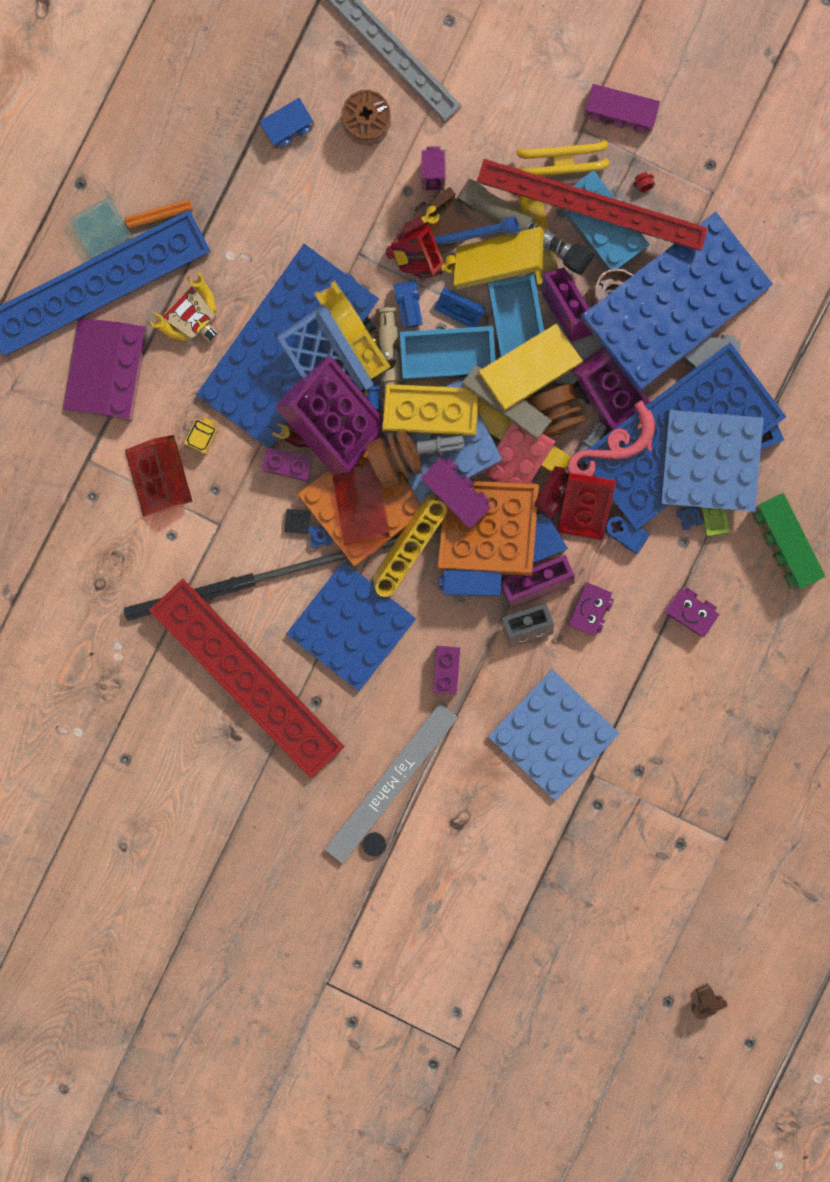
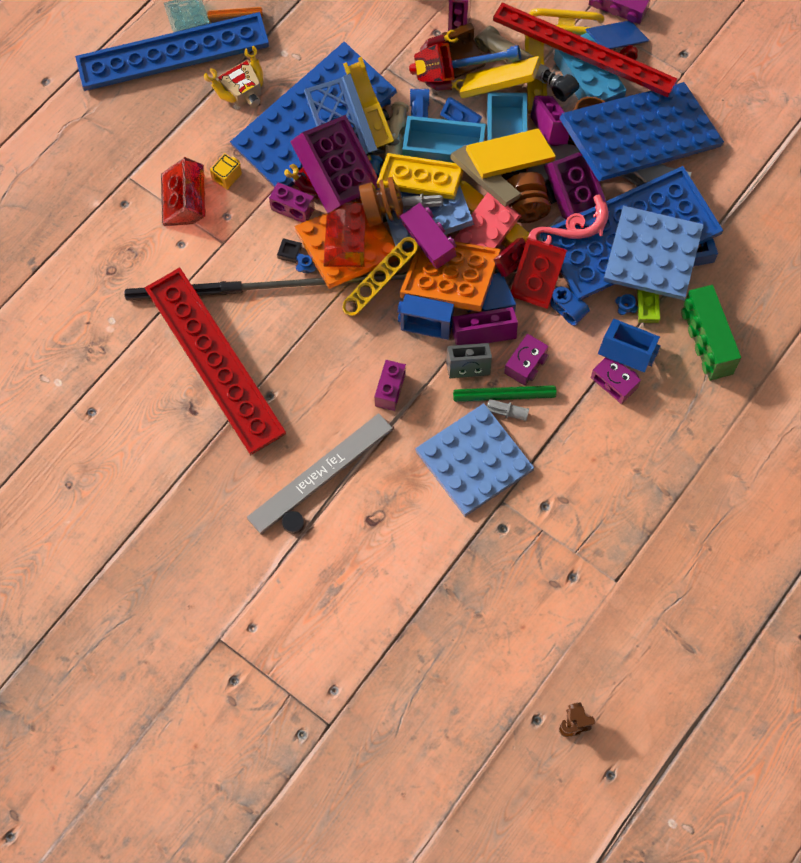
camera: 15 degrees right, 20 degrees down
(105, 368) = (164, 111): magenta slope -> none
(351, 626) = (315, 339): blue plate -> none
(572, 651) = (504, 393): none -> green axle
(580, 671) = (508, 410): none -> light grey axle
(627, 165) = (617, 35): none -> blue piece
(696, 589) = (629, 345): none -> blue window

